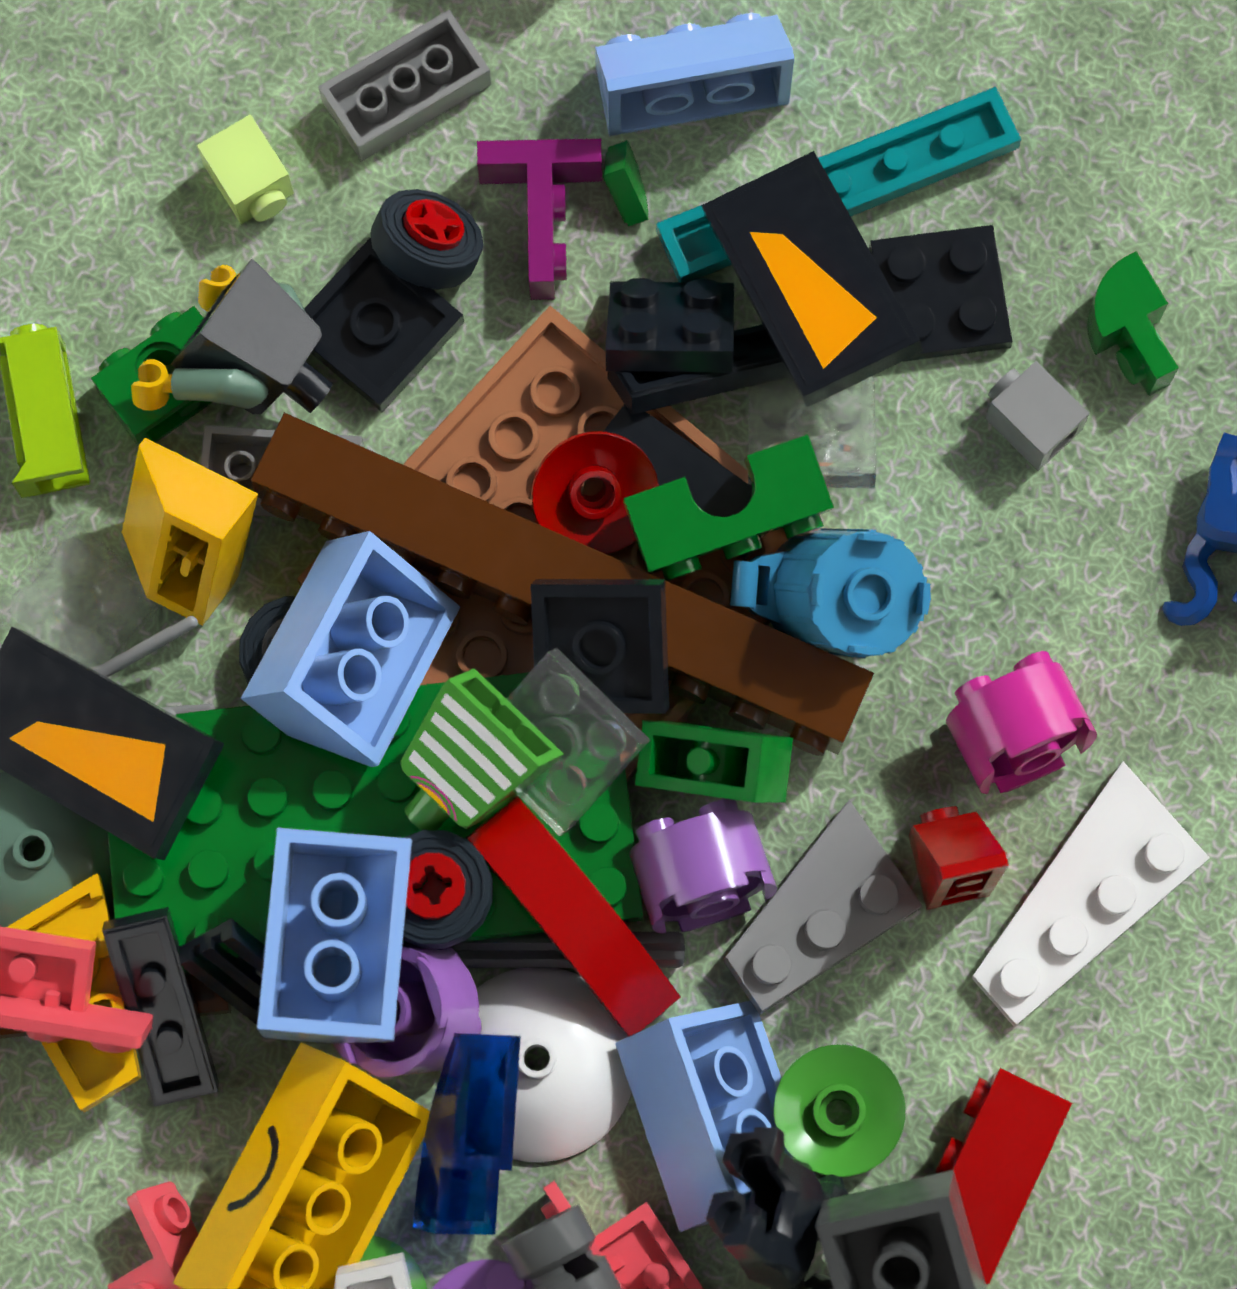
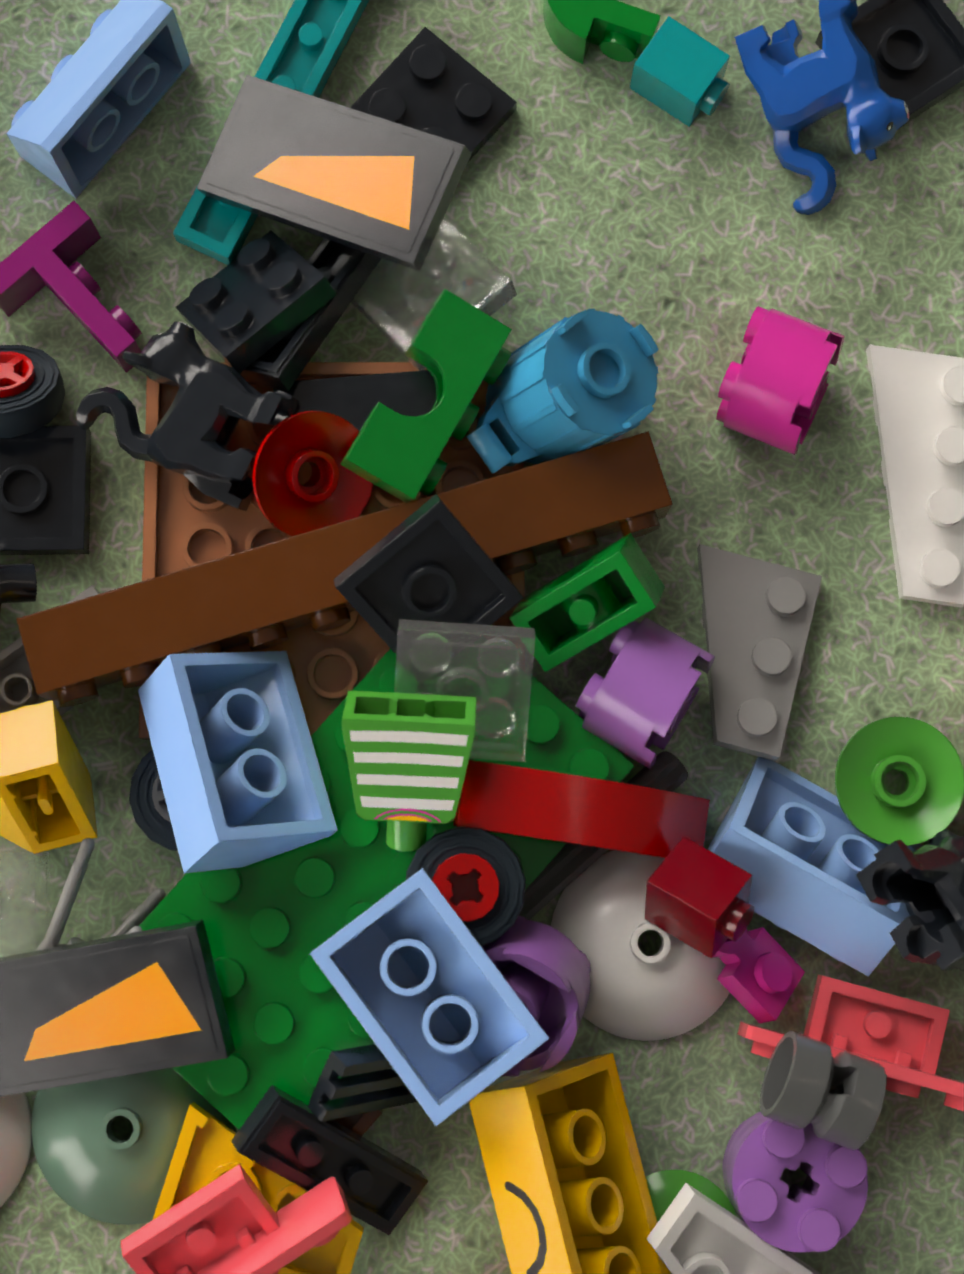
camera: 45 degrees left, 5 degrees up
(468, 1136) = (655, 1050): clear blue slope -> none
(548, 380) = (199, 421): none -> black animal
(599, 1050) = (699, 898): none -> dark red brick
(603, 1152) = (759, 973): none -> dark pink plate
(625, 183) = (121, 223): green tile -> none
(955, 857) = (826, 516): red slope -> none
(1035, 414) = (582, 140): light grey brick -> none
(1161, 426) = (681, 72): none -> teal brick

